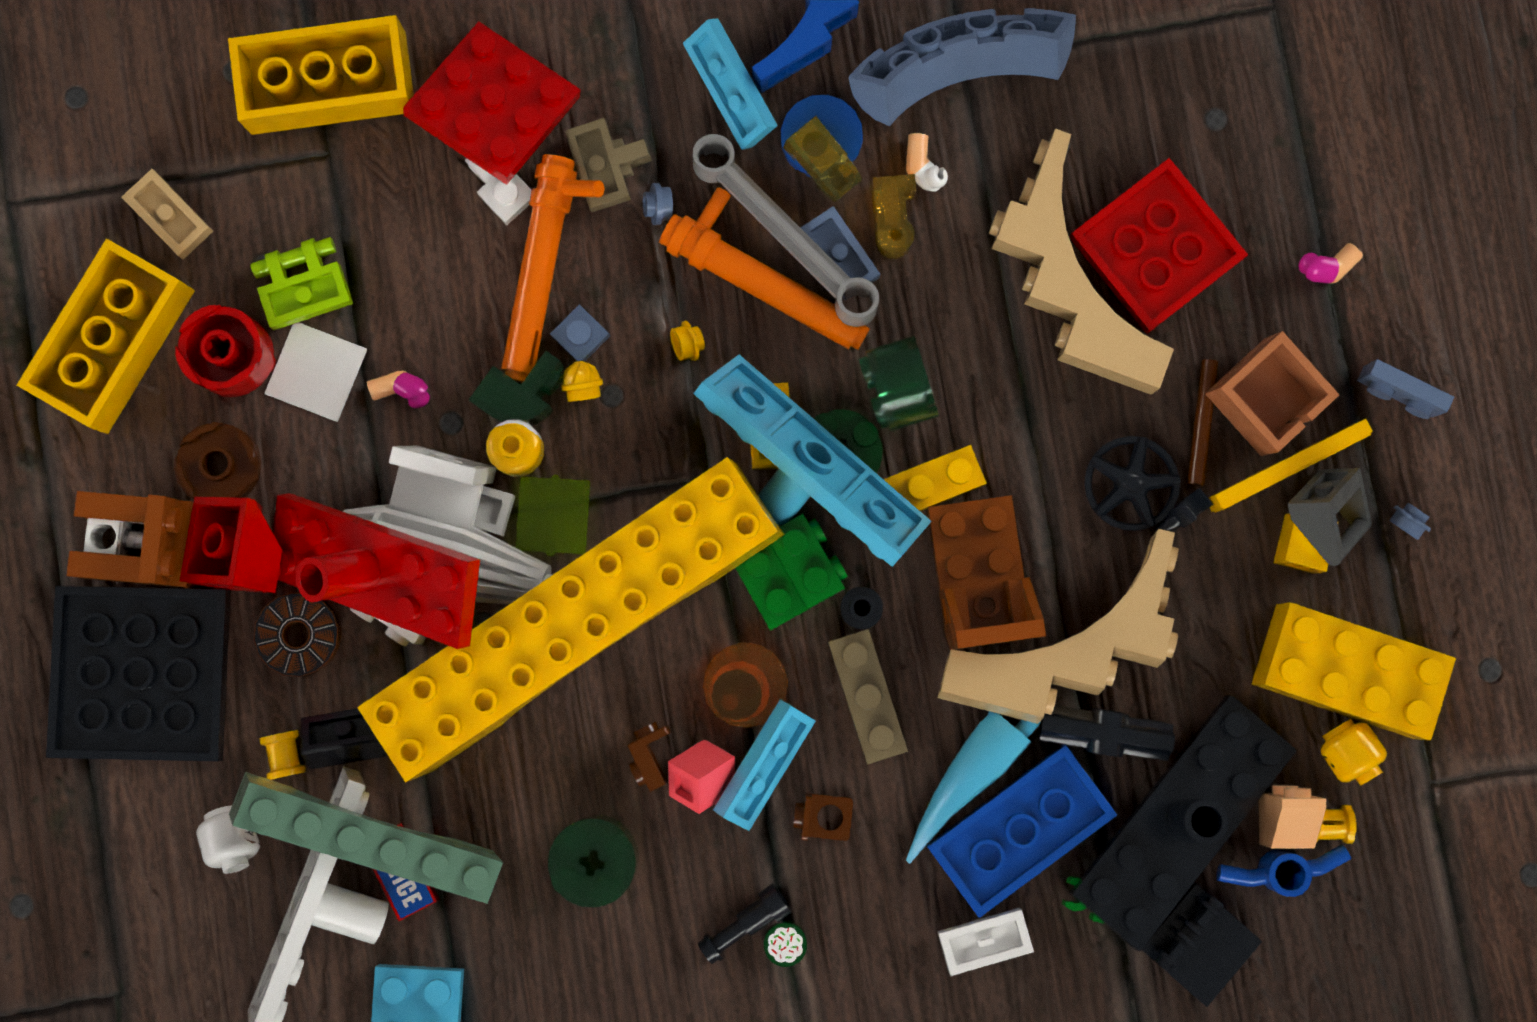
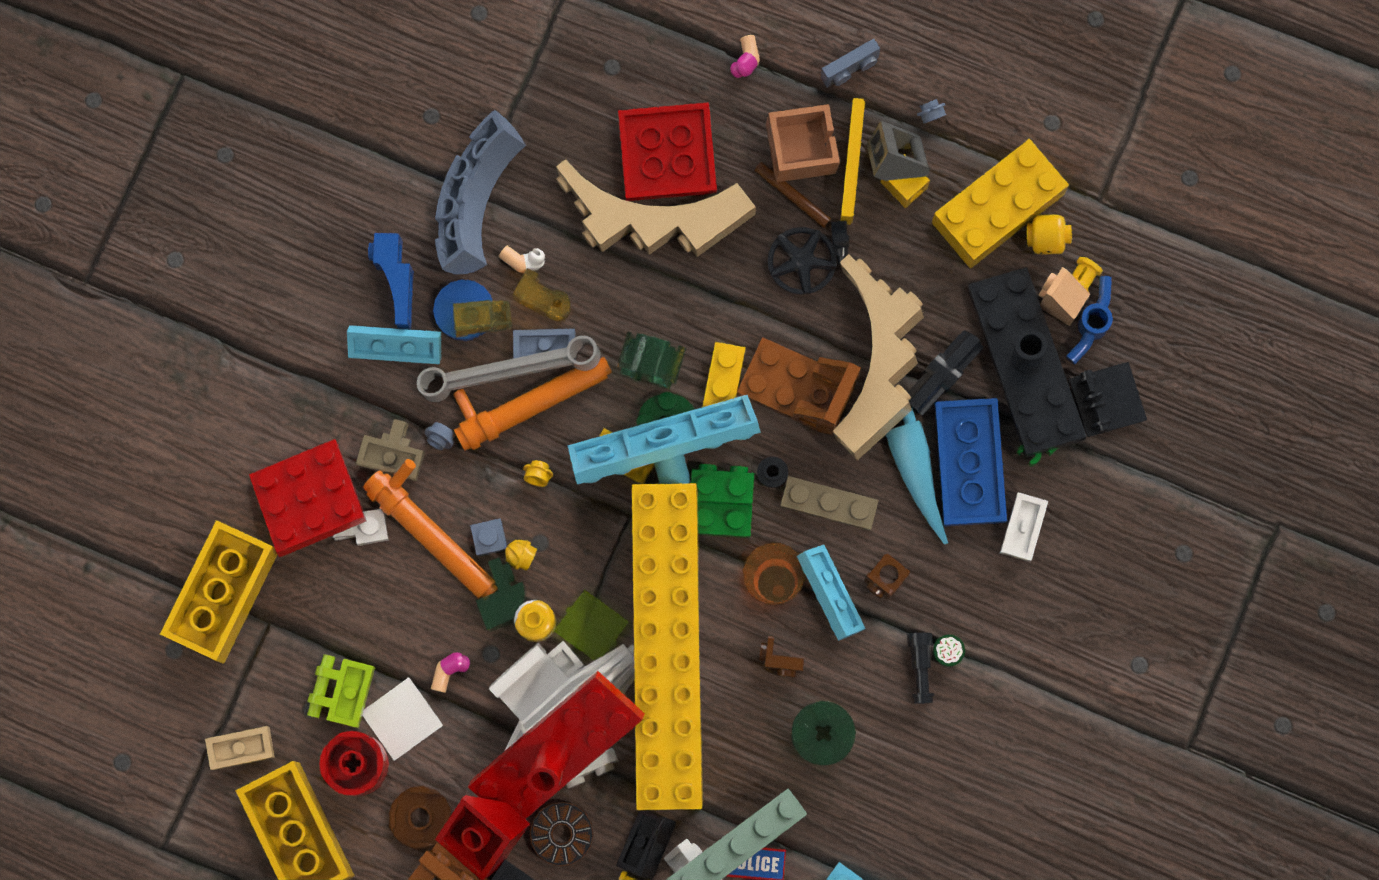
camera: 50 degrees left, 5 degrees down
(700, 775) = (812, 636): coral panel -> none

